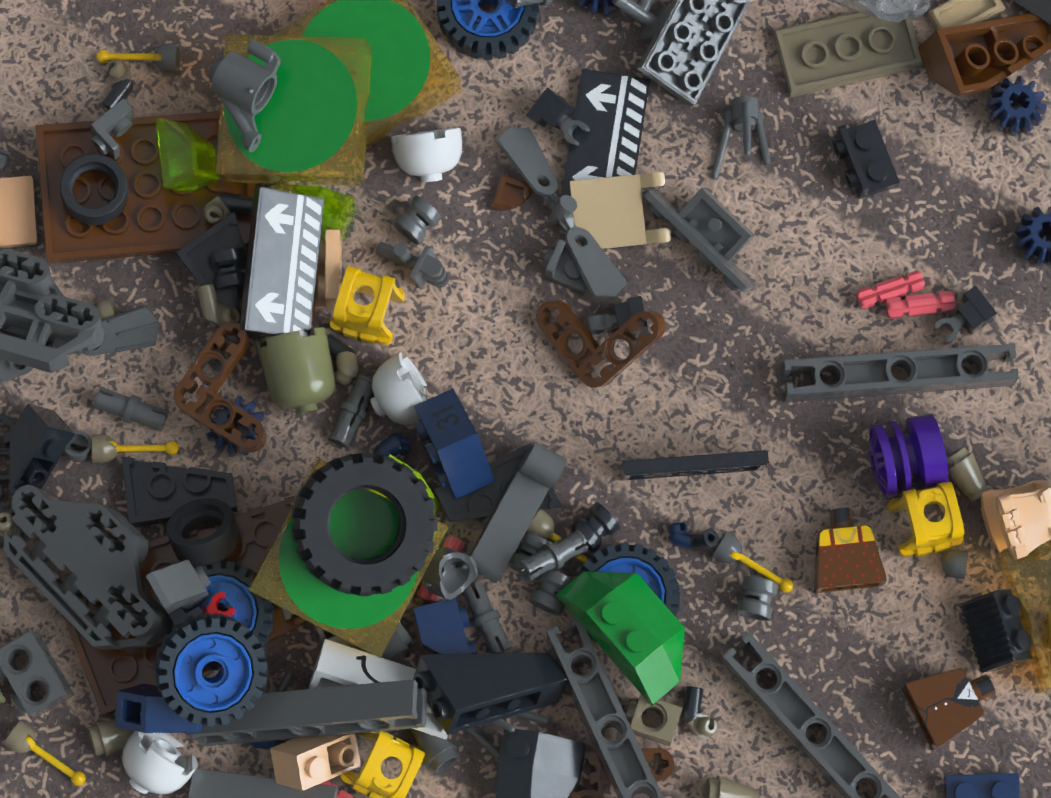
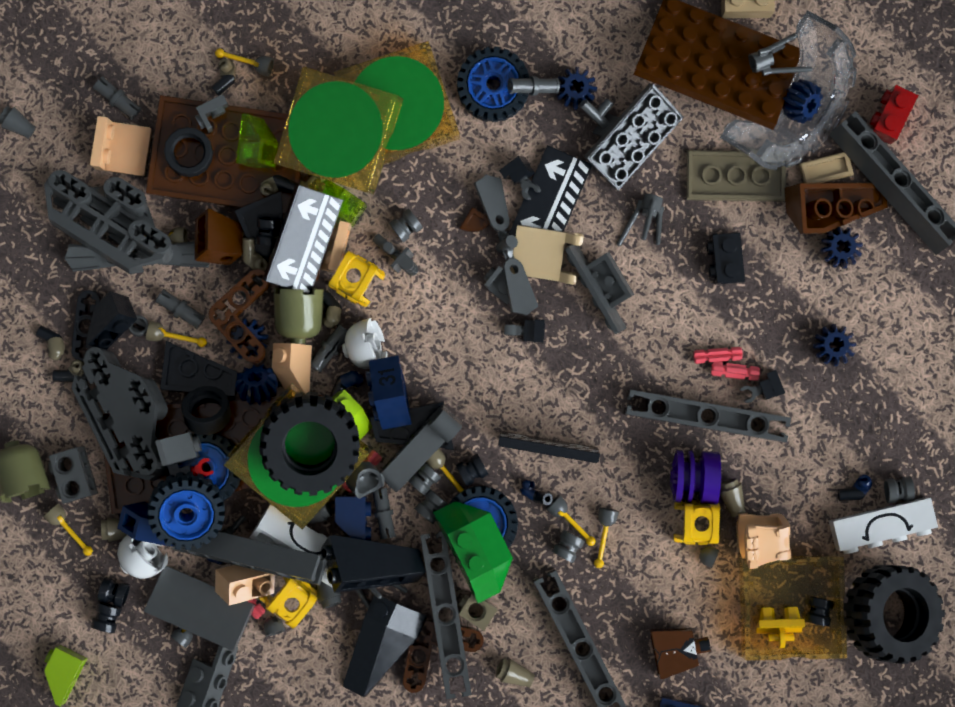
camera: 20 degrees right, 10 degrees up
(161, 297) = (217, 238): none -> reddish brown torso
(245, 87) = (306, 110): dark grey piece -> none
(264, 483) = (256, 384): none -> dark blue gear
(303, 438) = (292, 364): none -> light nougat slope
(428, 152) = (425, 179): white cylinder -> none
(552, 556) = (436, 485): dark grey pin -> none
(593, 352) = (501, 349): reddish brown beam -> none
(694, 716) = (506, 614): arm -> none
(801, 546) = (607, 518): none -> hinge
(846, 556) = (636, 533): reddish brown torso -> none
(996, 630) = (723, 610): black brick -> none

